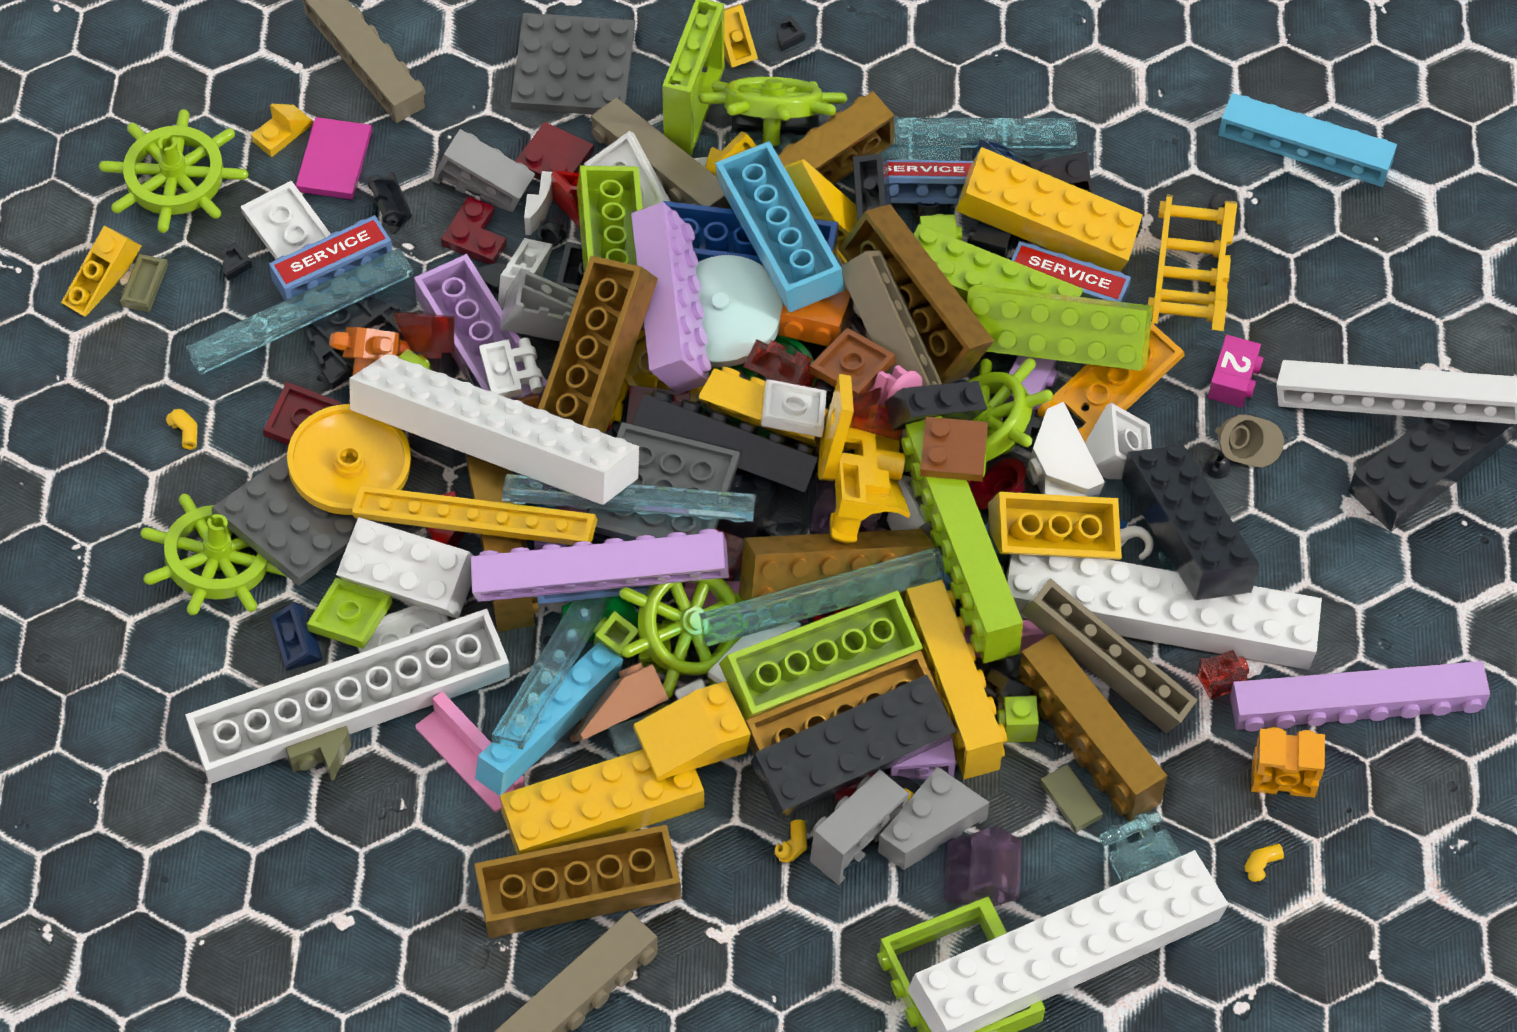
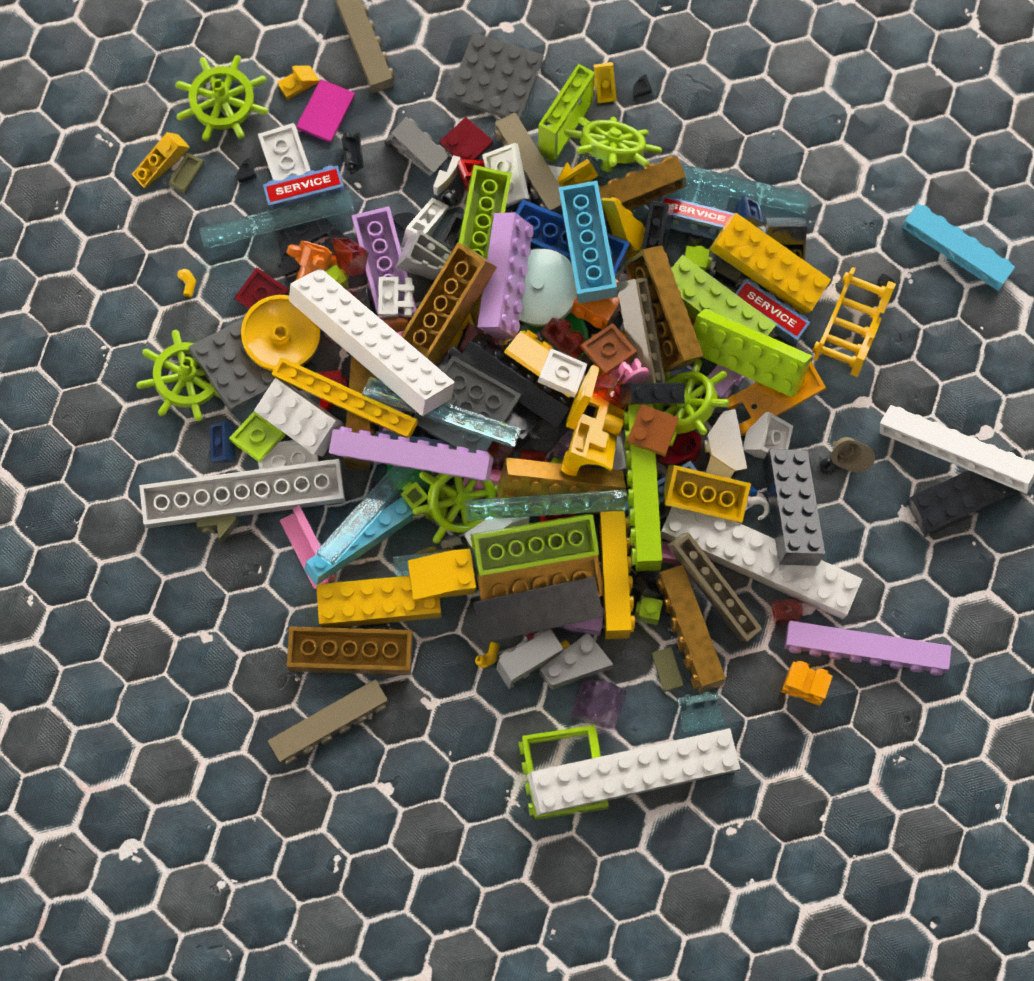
camera: 15 degrees right, 15 degrees up
(468, 233) = (397, 188): dark red plate -> none
(625, 697) = (407, 540): nougat slope -> none
(1235, 370) = (858, 403): dark pink brick -> none
(1258, 860) = (770, 739): yellow arm -> none

